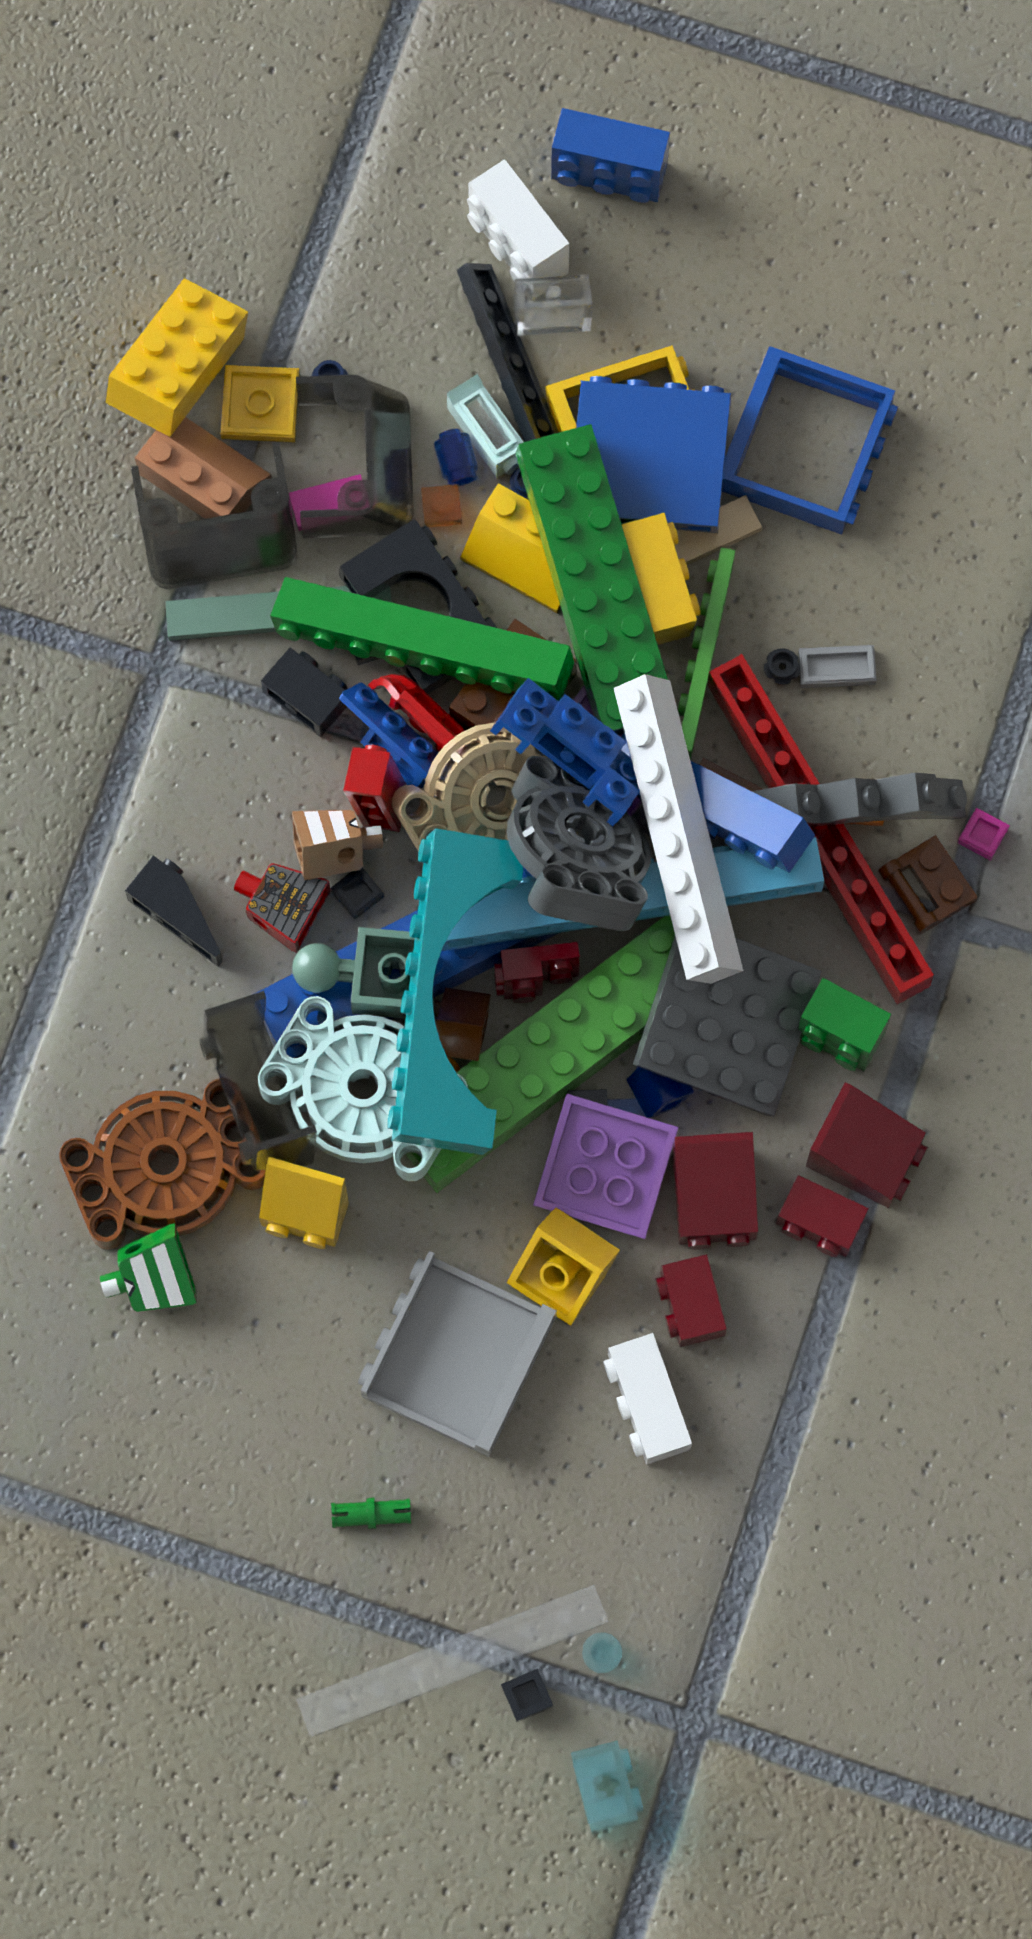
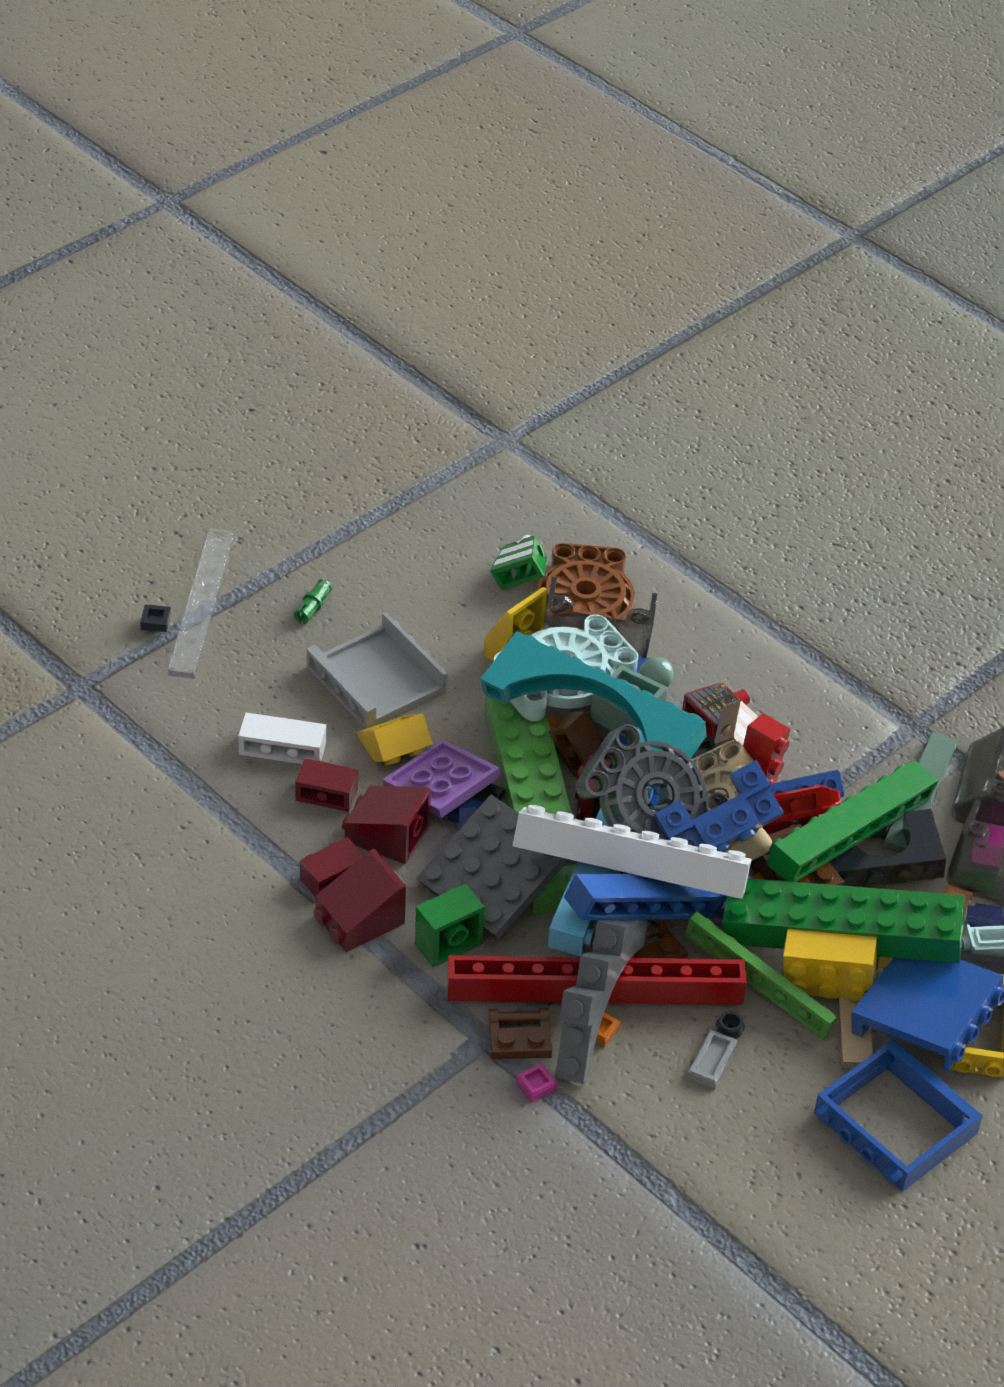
camera: 115 degrees right, 30 degrees down
(168, 900) = (744, 663): black slope -> none
(305, 690) = (857, 771): black brick -> none
(602, 1652) = (152, 659): clear light blue plate -> none
(603, 1811) = (76, 625): clear light blue brick -> none

